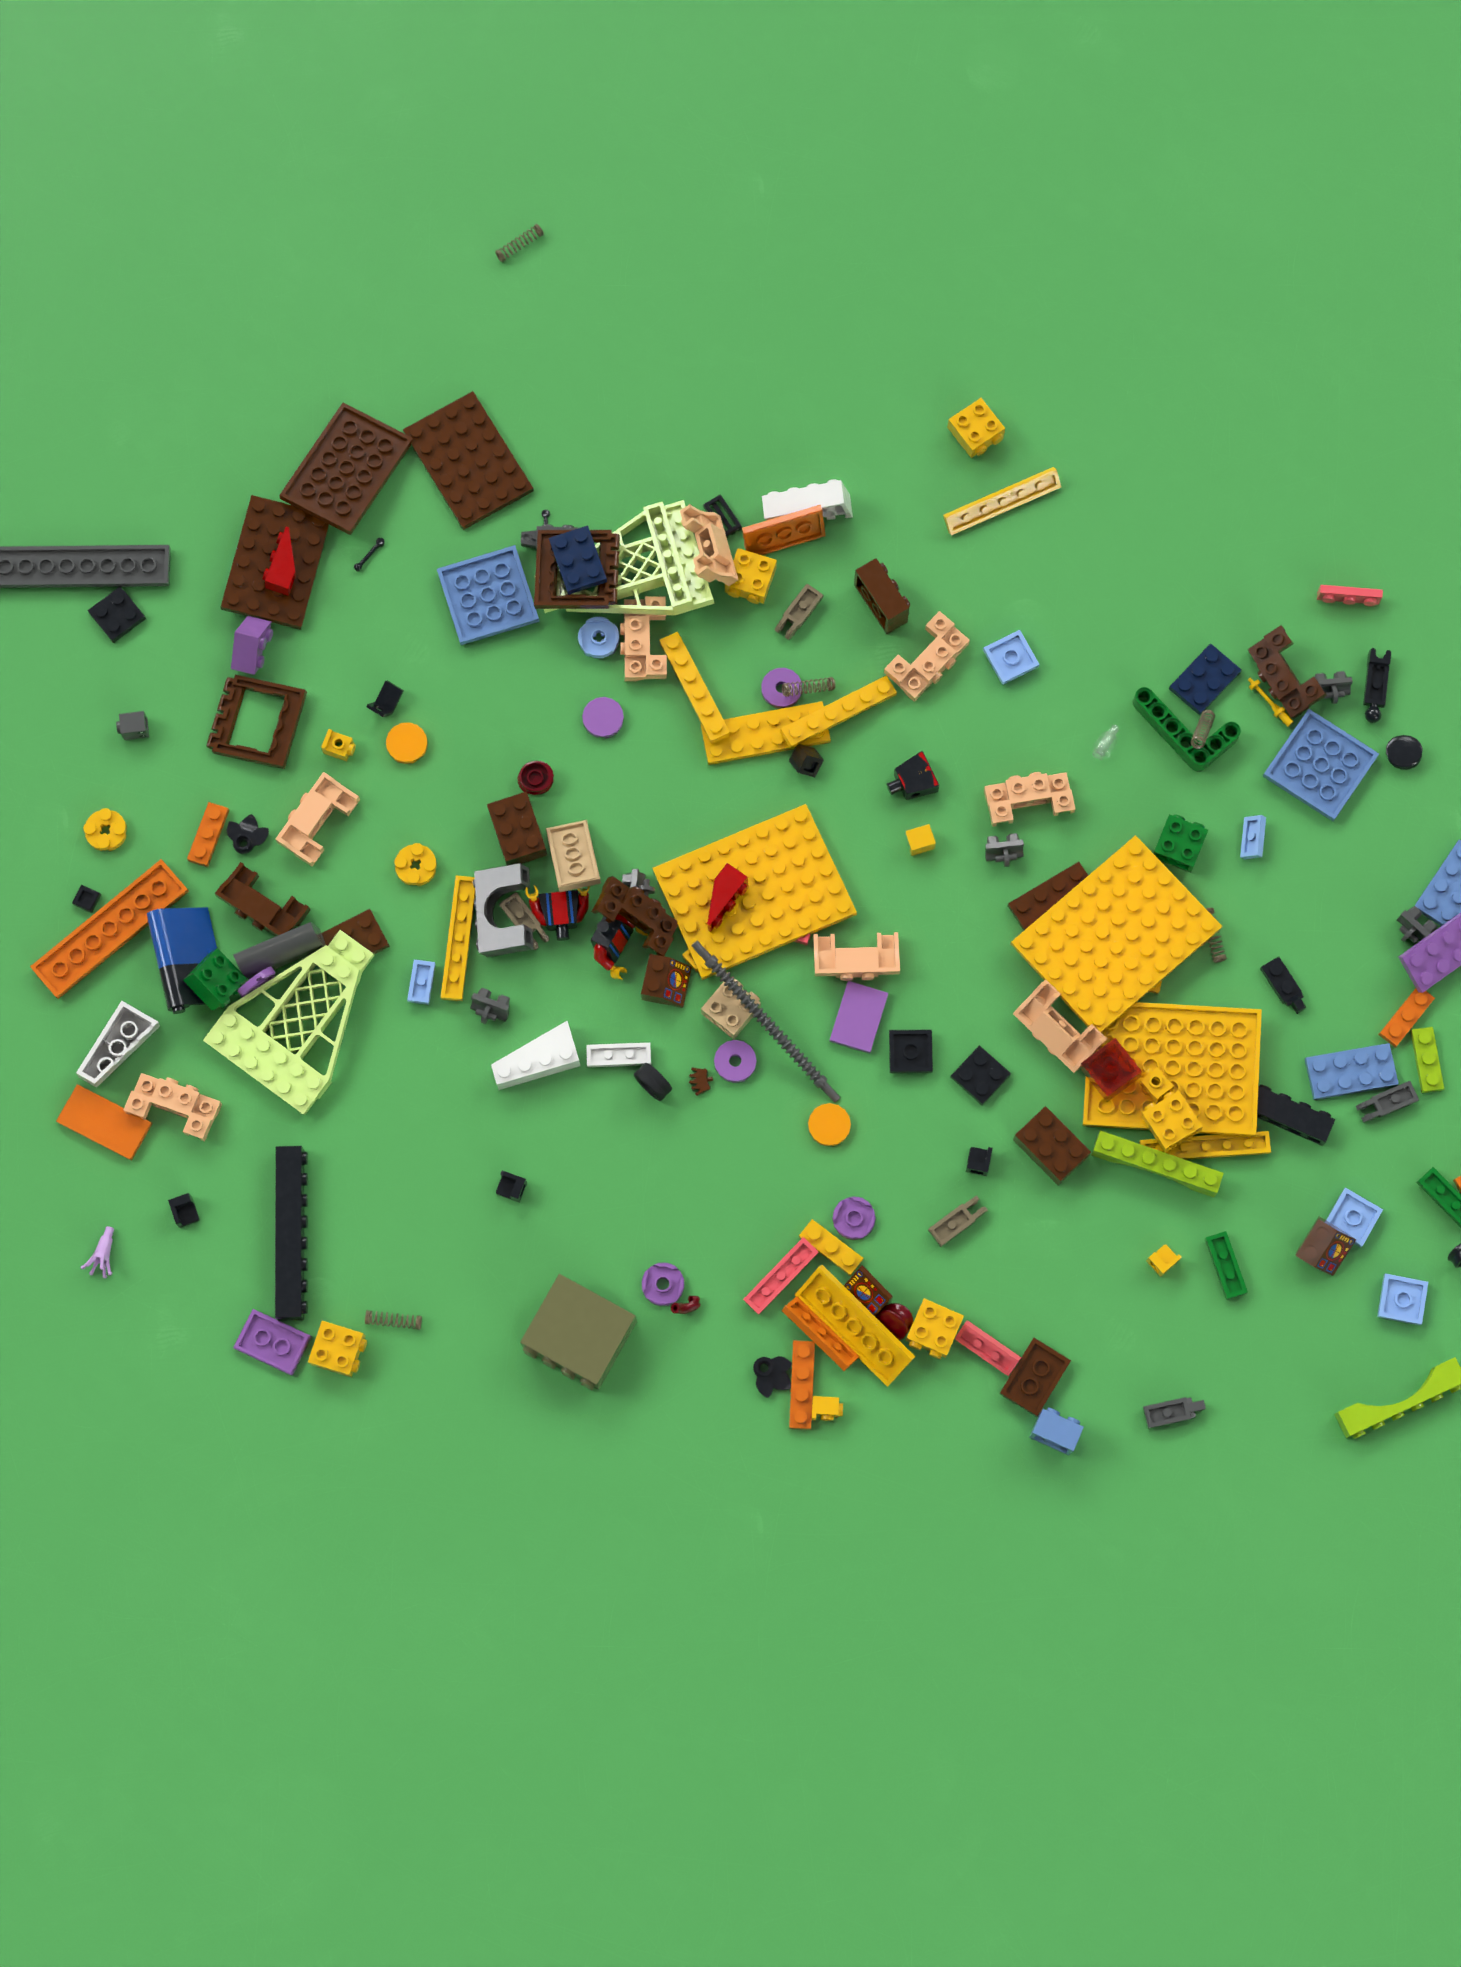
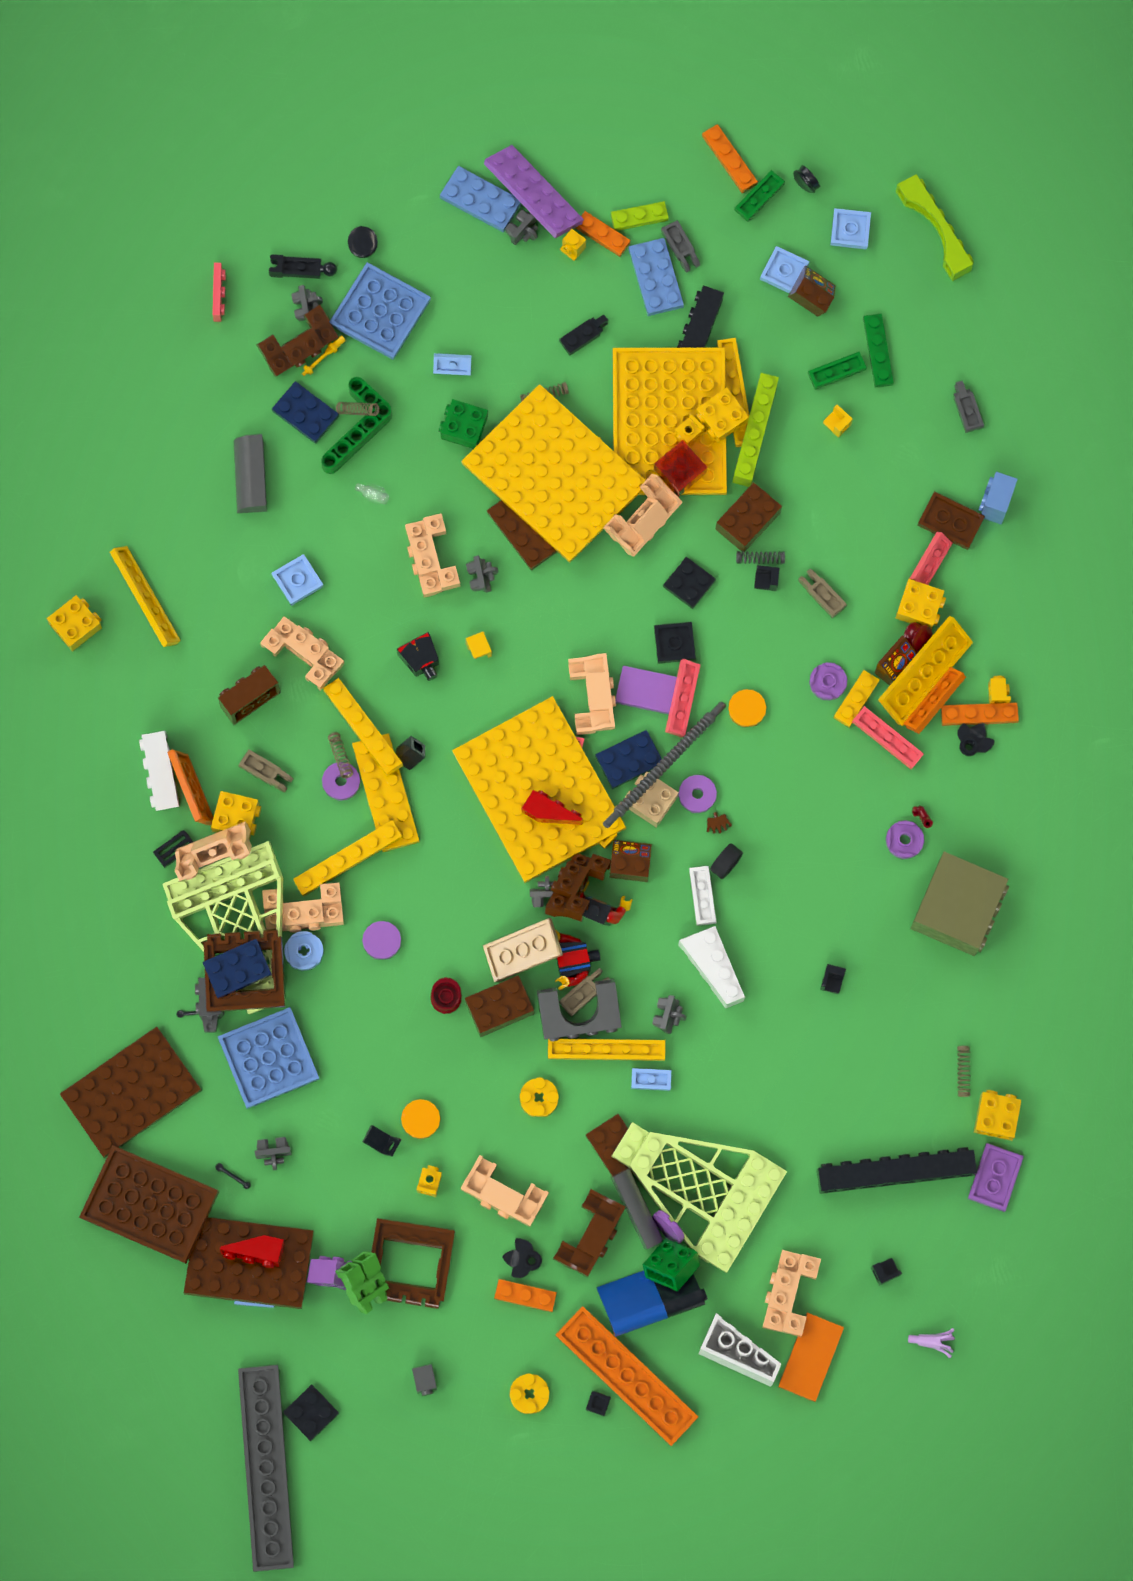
camera: 100 degrees left, 0 degrees up
(236, 666) = (364, 1281): none -> bright green hips
(389, 601) = (281, 1149): none -> dark grey hips
(781, 991) = (628, 759): none -> dark blue plate
(845, 1053) = (682, 698): none -> coral plate
(1009, 1132) = (739, 557): none -> dark grey piece
(1135, 618) = (250, 474): none -> dark grey brick
(1250, 1316) = (878, 350): none -> green plate
(1392, 980) = (573, 244): none -> yellow brick

